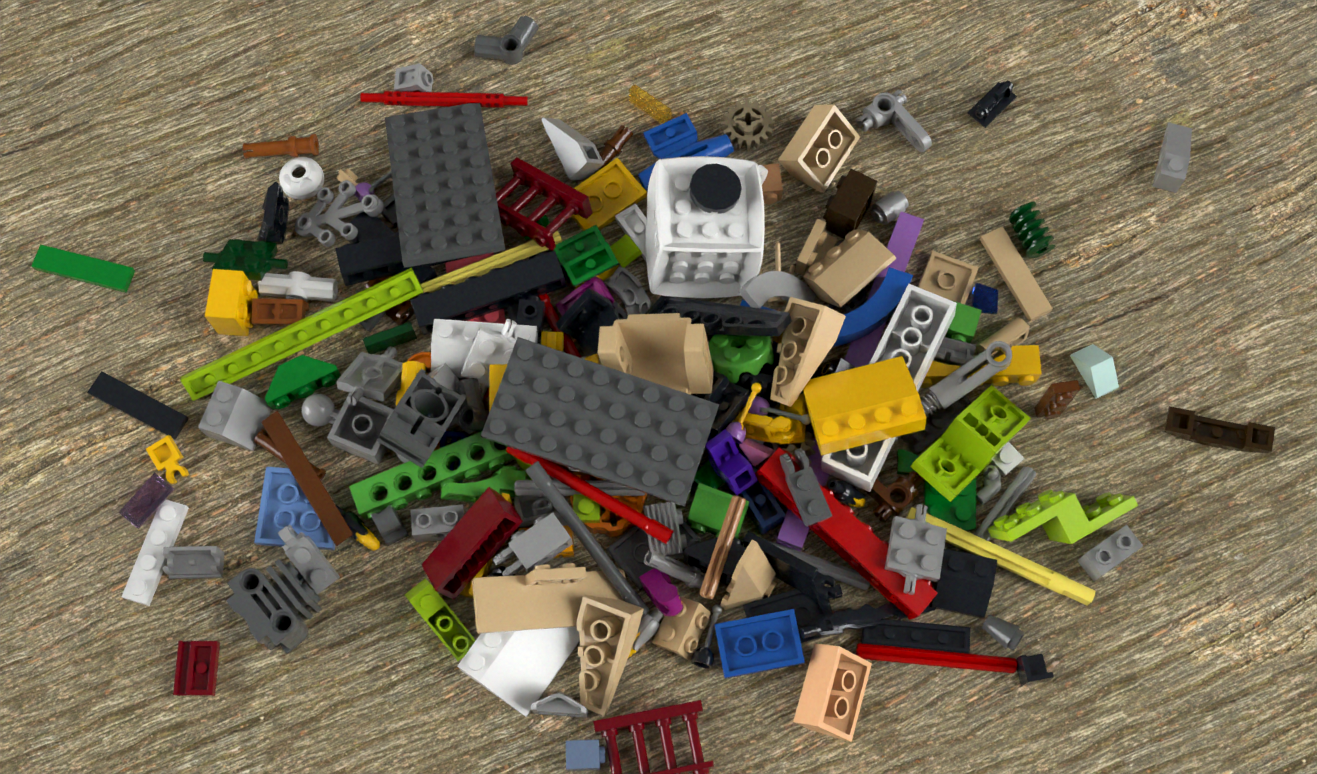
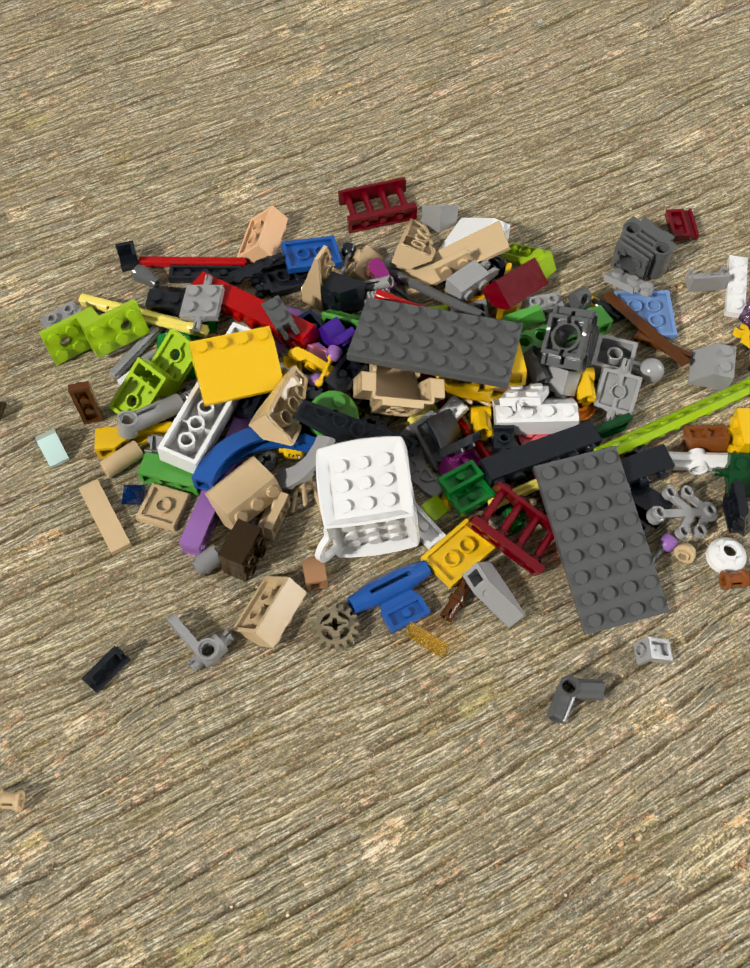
camera: 175 degrees right, 10 degrees down
(299, 380) = (670, 395): green slope -> none
(444, 99) = (618, 636): red axle -> none
(584, 755) = (420, 194): sand blue brick -> none
(715, 188) = (359, 492): black tile -> none
(722, 547) = (338, 283): medium nougat axle -> none
(796, 571) = (292, 285): black tile -> none
(1029, 230) = (86, 548): dark green piece -> none

